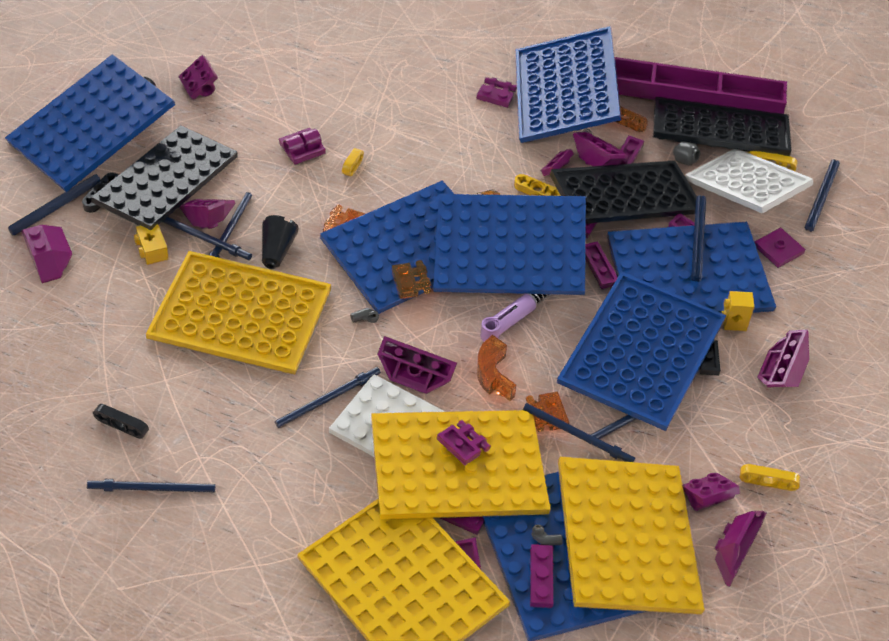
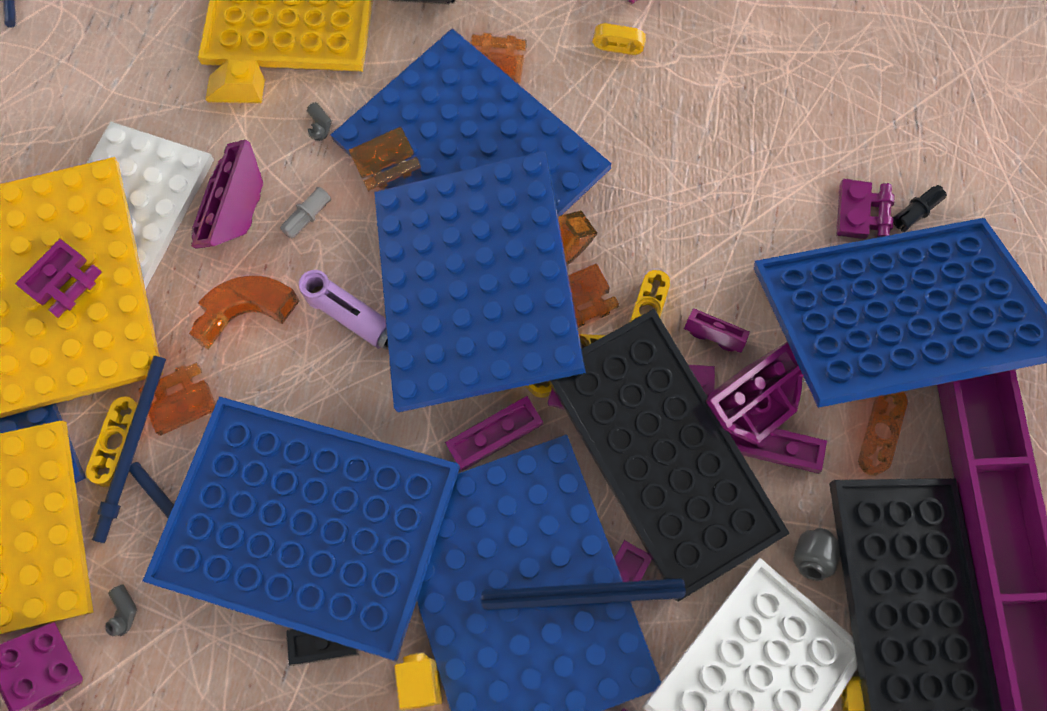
camera: 85 degrees right, 20 degrees up
(321, 353) = (236, 83): none -> yellow slope
(360, 379) = (200, 140): dark blue bar -> none
(432, 330) = (305, 212): none -> light grey axle
(502, 70) = (919, 208): none -> black axle
(567, 439) = (108, 429): none -> yellow beam
(680, 449) = (125, 612): none -> dark grey arm

